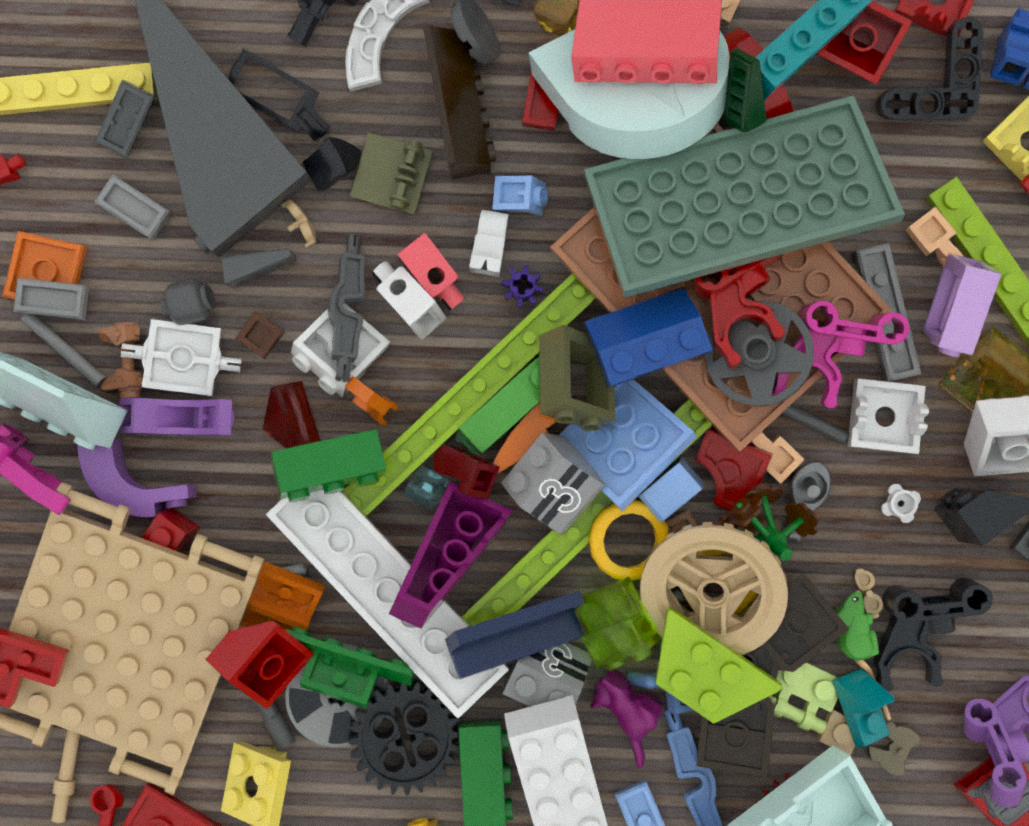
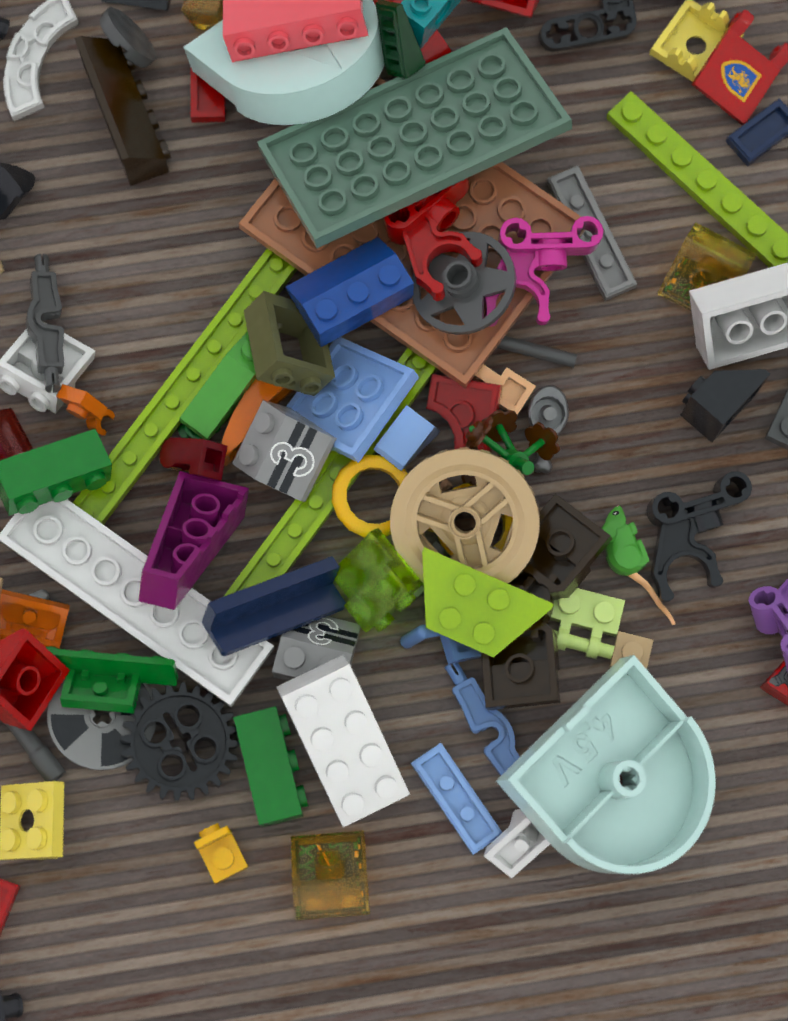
camera: 10 degrees left, 10 degrees down
(391, 173) = (69, 189): olive hinge -> none
(408, 299) = (108, 305): white torso -> none
(423, 256) = (115, 259): coral torso -> none
(426, 487) = (155, 486): clear light blue plate -> none
(489, 244) = (179, 239): white leg -> none
(516, 279) = (227, 279): dark purple gear -> none
(520, 194) = (201, 185): light blue bracket -> none
(634, 712) = (412, 671): magenta animal -> none
(862, 703) = (642, 615): teal slope -> none
(865, 581) = (624, 497): tan piece -> none
(894, 758) = (691, 671): dark tan piece -> none
(908, 410) = (627, 314): white piece -> none
(910, 506) = (651, 406): white plate -> none
(933, 234) = (619, 149): light nougat plate -> none
(960, 305) = (655, 204): lavender window -> none

